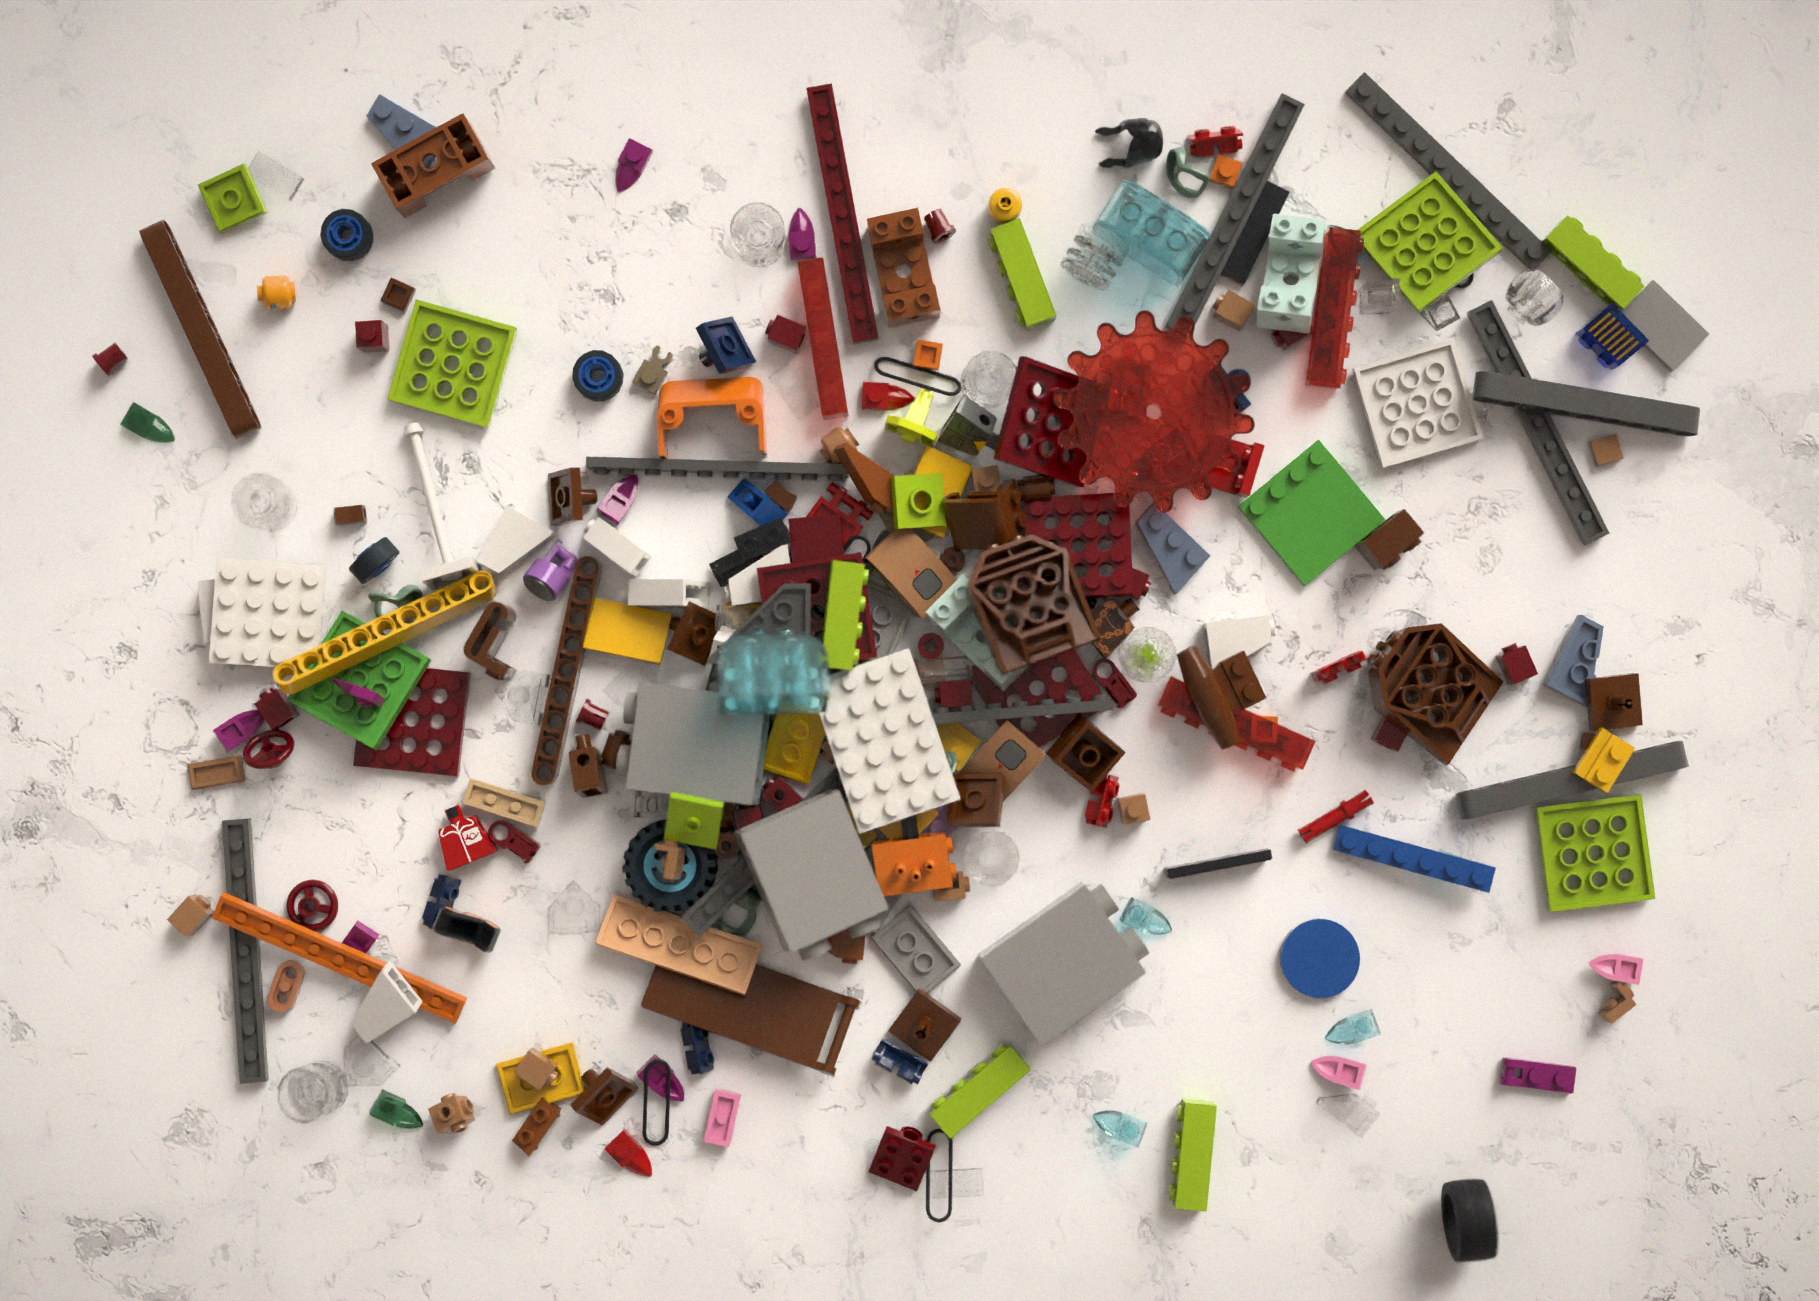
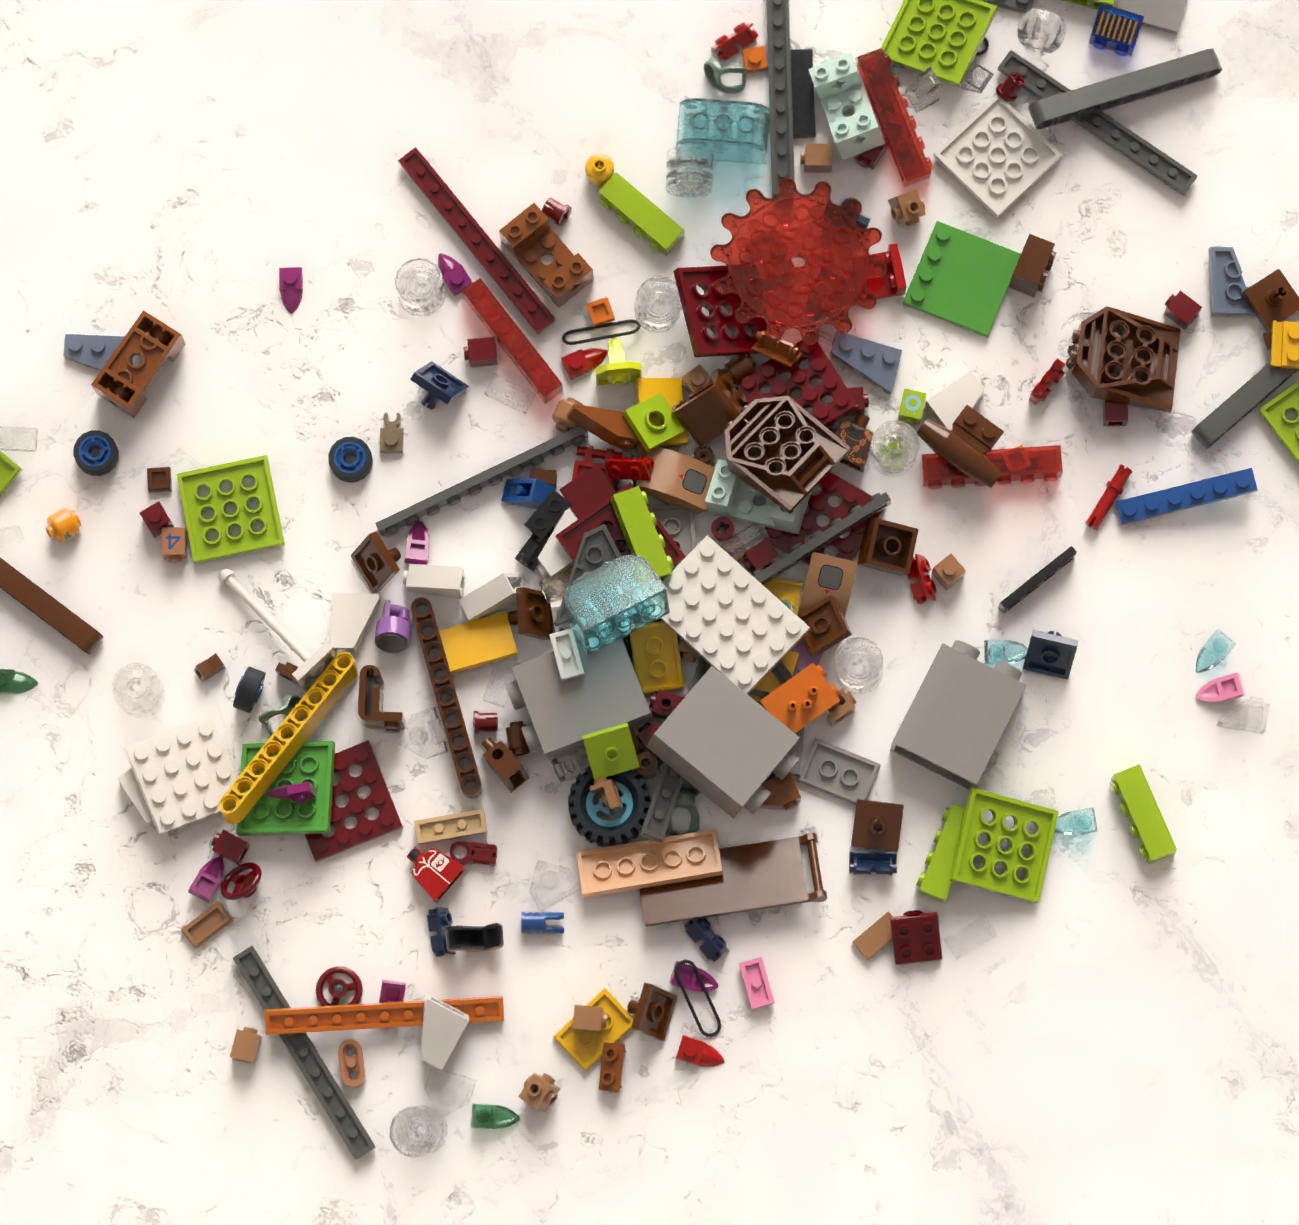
camera: 30 degrees left, 10 degrees down
(377, 371) = (174, 544): none -> nougat brick
(423, 559) = (286, 671): none -> reddish brown plate
(538, 942) = (535, 922): none -> blue hinge
(699, 701) = (567, 654): none -> white plate
(743, 392) = (423, 441): orange windscreen -> none
(862, 531) = (628, 468): none -> red hinge
(863, 1133) = (875, 937): none -> medium nougat tile
(949, 1180) = (963, 935): black piece -> none
(969, 428) = (663, 348): dark grey torso -> none
(1017, 1082) = (969, 847): none -> lime piece
(1083, 495) = (782, 352): none -> dark orange hinge
(1116, 684) = (881, 485): dark red piece -> none
(1144, 146) = (683, 71): black hair -> none
(1187, 620) = (912, 407): none -> lime brick
(1189, 947) = (1050, 654): none -> dark blue tile
(1295, 411) = (907, 208): none -> medium nougat brick
(1320, 958) = (1157, 612): blue tile -> none
(1470, 339) = (1010, 87): none -> dark red bush
(1606, 450) = (1160, 116): medium nougat tile -> none

